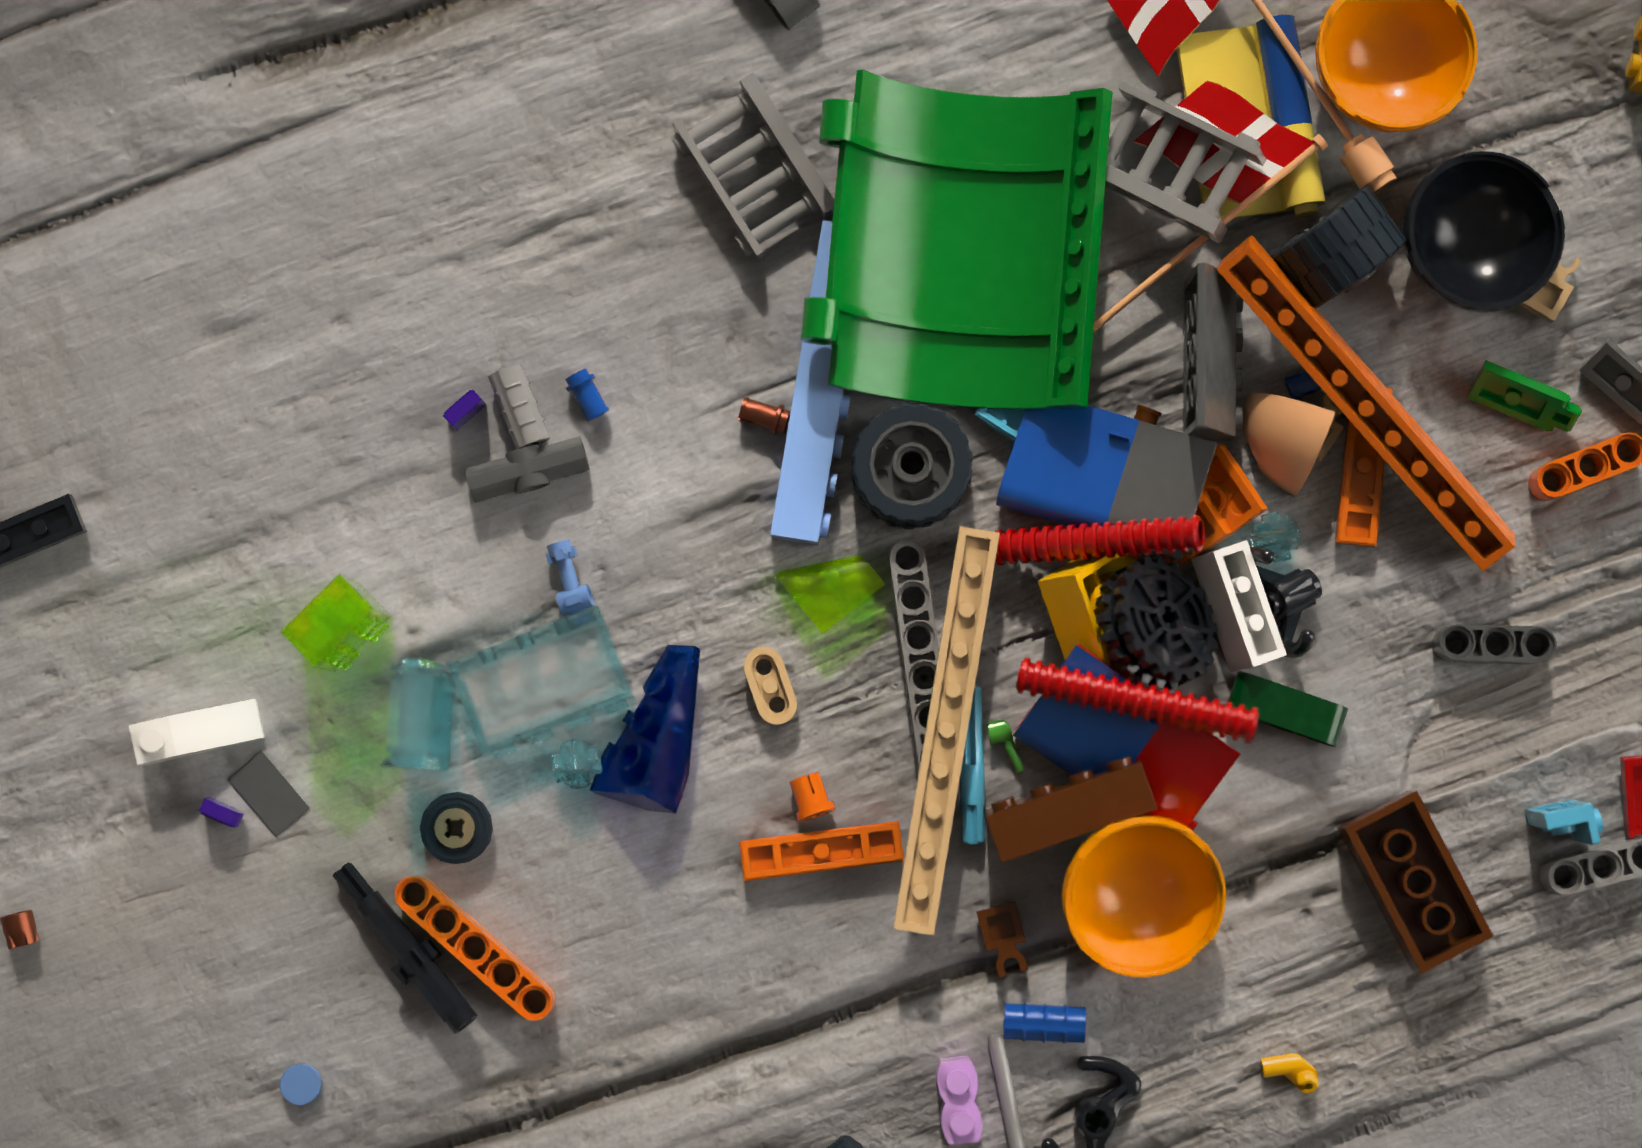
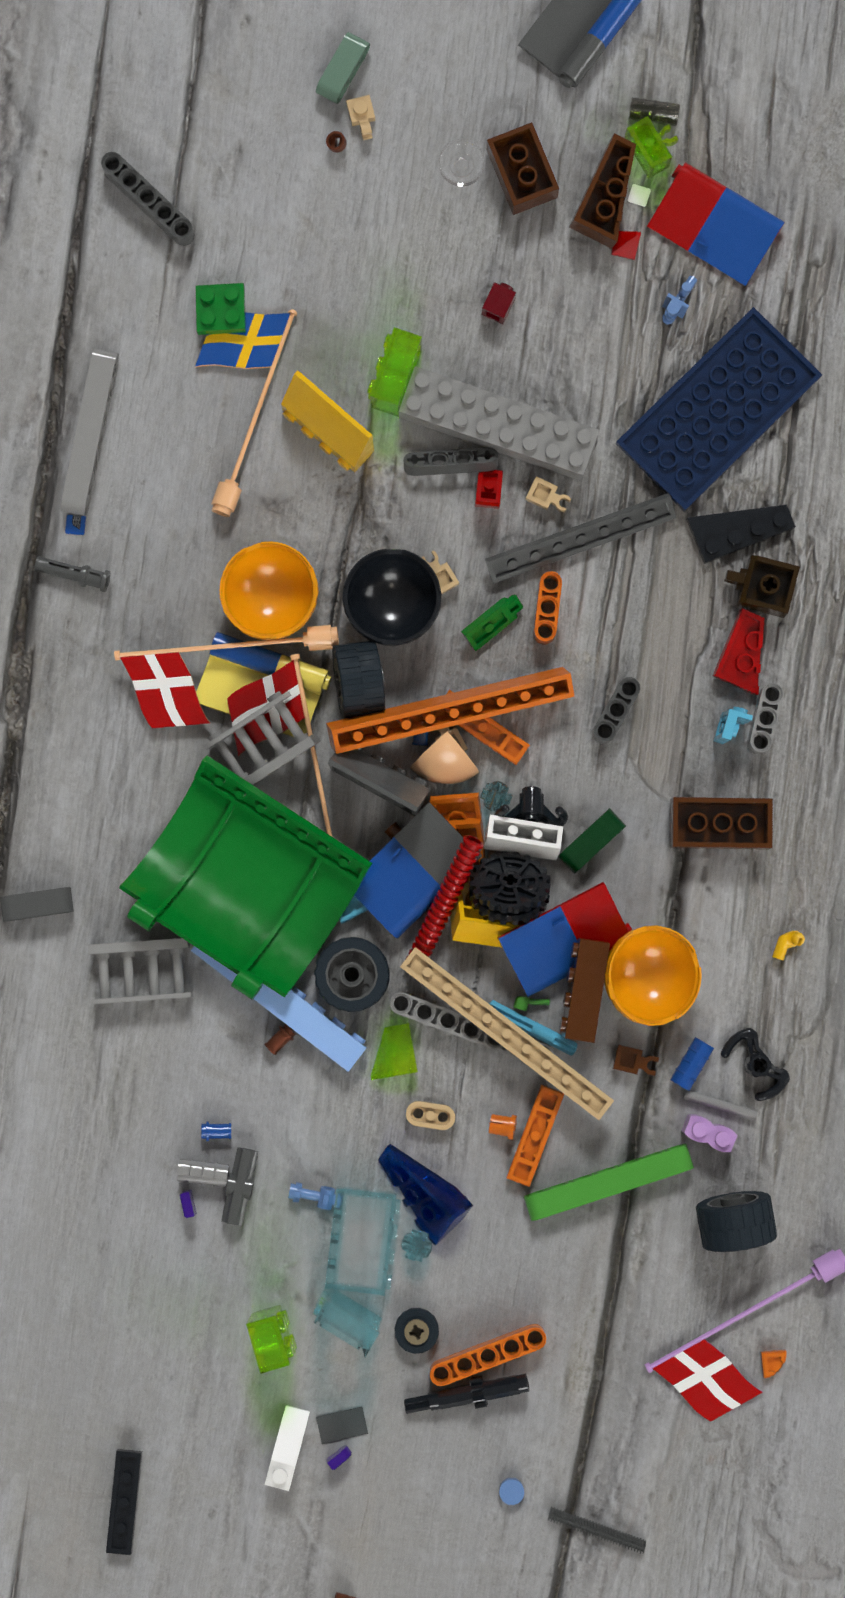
camera: 65 degrees left, 0 degrees up
(811, 991) = (608, 1182): none -> bright green beam
(1137, 700) = (545, 923): red piece -> none

